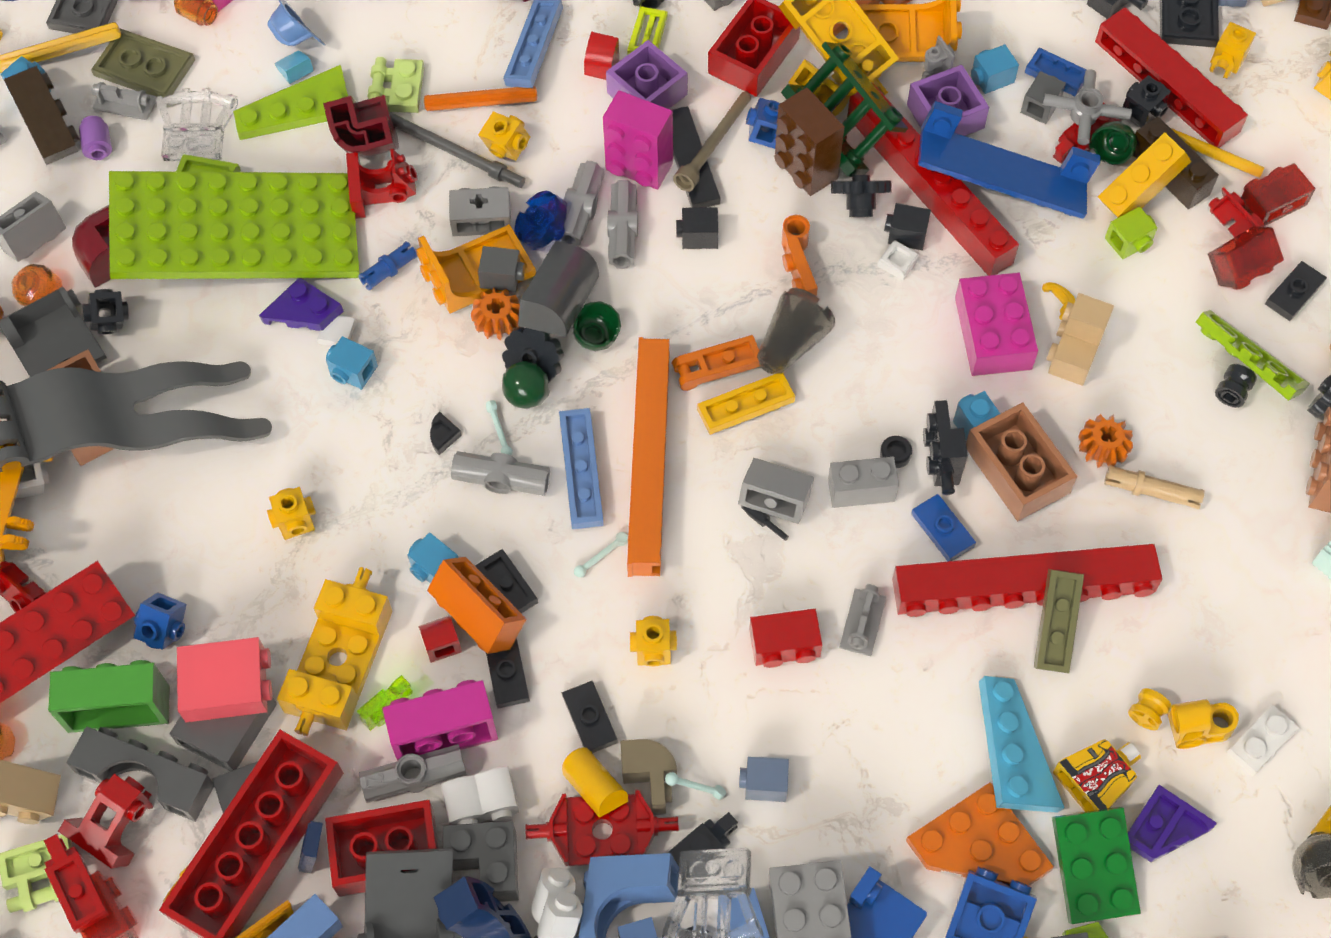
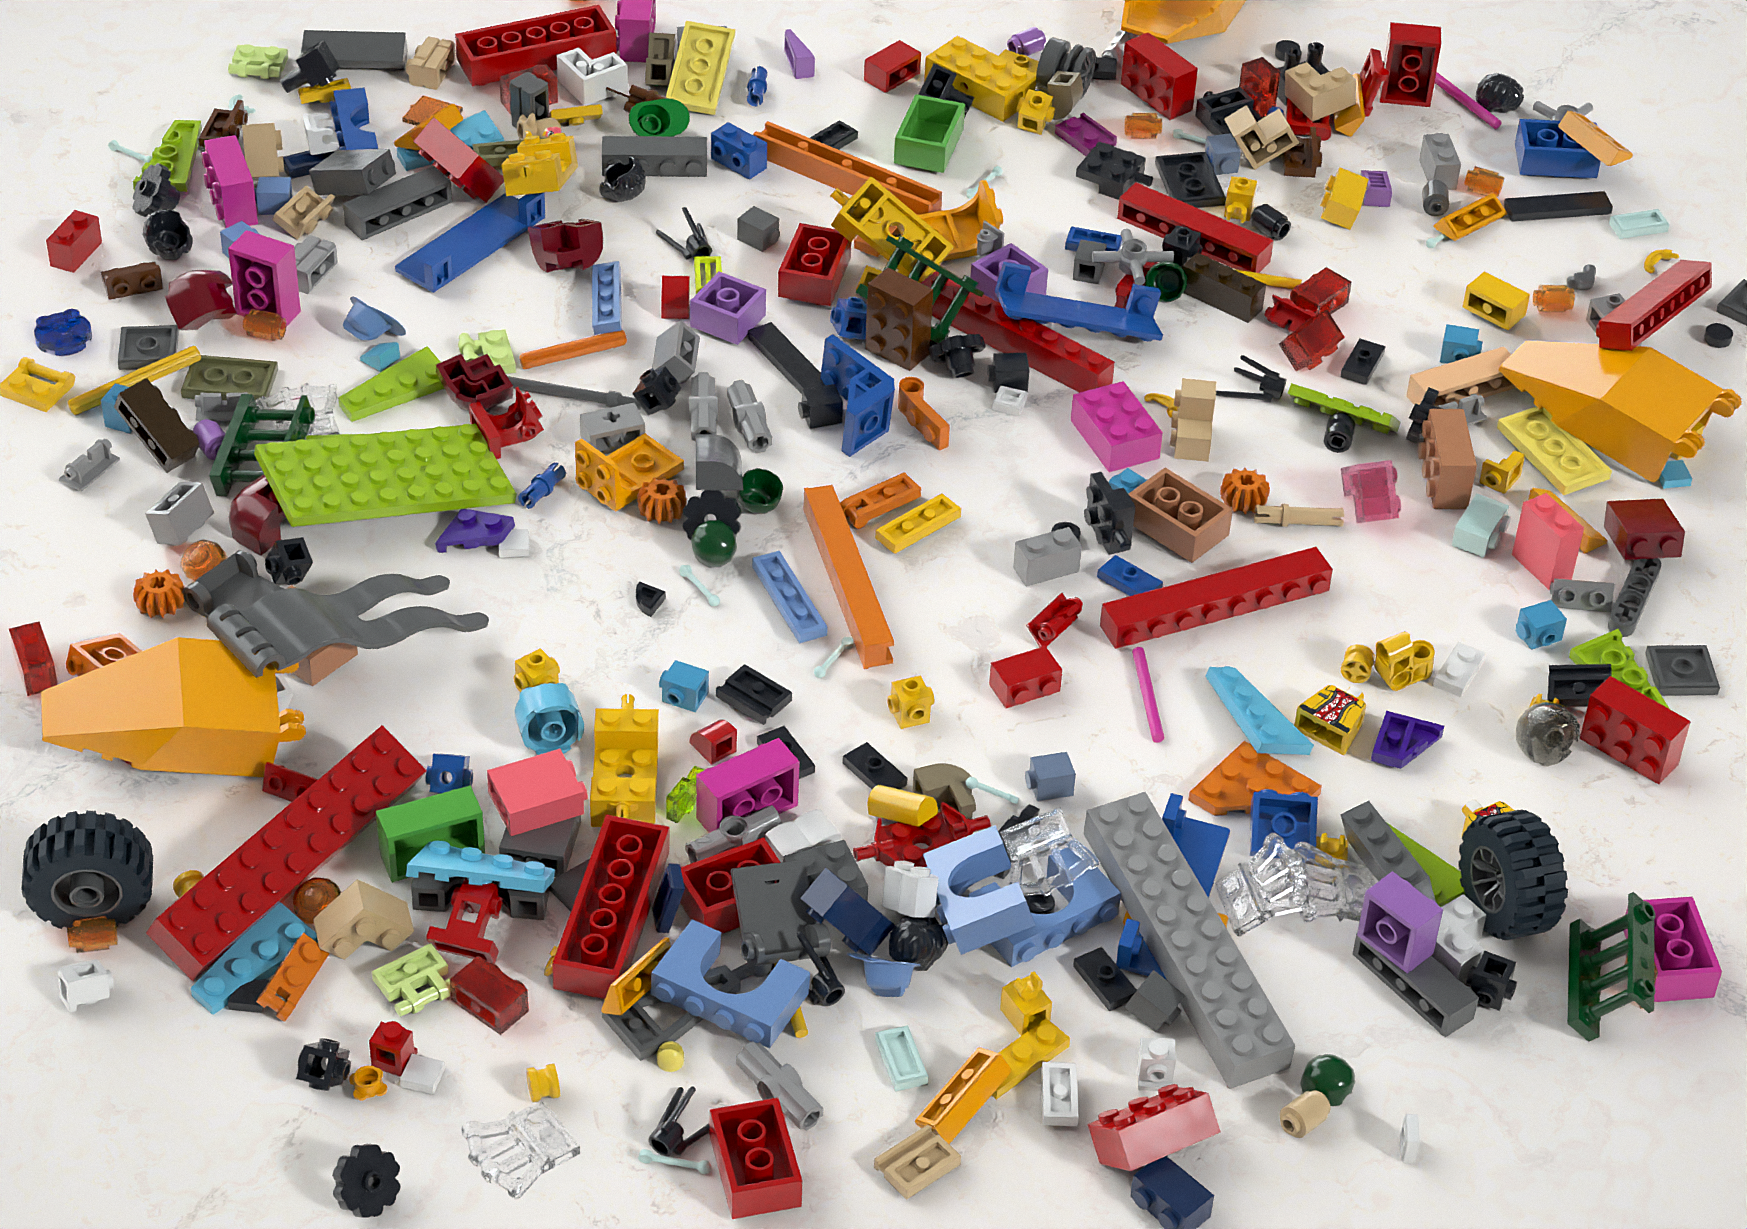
camera: 20 degrees left, 20 degrees down
(73, 885) = (464, 962): red hinge -> none
(123, 137) = (242, 432): none -> dark green fence
(128, 763) = (480, 868): none -> medium azure wing
(279, 576) = (549, 718): none -> medium azure brick
(351, 363) = (540, 559): dark azure brick -> none
(476, 605) = (741, 702): orange brick -> none
(500, 268) = (655, 460): dark grey brick -> none
(500, 473) = (717, 613): light grey piece -> none
(504, 136) = (612, 369): yellow brick -> none
(539, 172) = (656, 390): none -> black brick
(542, 220) = (675, 434): clear blue plate -> none
(573, 132) = (677, 351): none -> light grey brick
(638, 139) = (743, 342): dark pink brick -> none
(688, 175) = (796, 367): dark tan piece -> none
(743, 235) = (866, 390): none -> blue bracket
(764, 520) = (968, 603): black piece -> none
(776, 490) = (973, 576): light grey brick -> none
(793, 330) = (942, 455): clear smoke cone -> none
(841, 566) = (1054, 619): none -> red hinge
(863, 620) = (1088, 653): light grey hinge -> none
(909, 689) = (1148, 694): none -> dark pink bar
(994, 69) = (1040, 245): dark azure brick -> none
(1058, 621) = (1257, 614): olive plate -> none
(1096, 865) = (1356, 769): green plate -> none
(1131, 233) = (1206, 343): lime brick -> none
(1145, 176) = (1204, 297): yellow brick -> none
(1182, 303) = (1271, 383): none -> black plant
(1244, 479) = (1372, 490): none -> clear pink brick
(1255, 84) = (1270, 221): none -> black brick

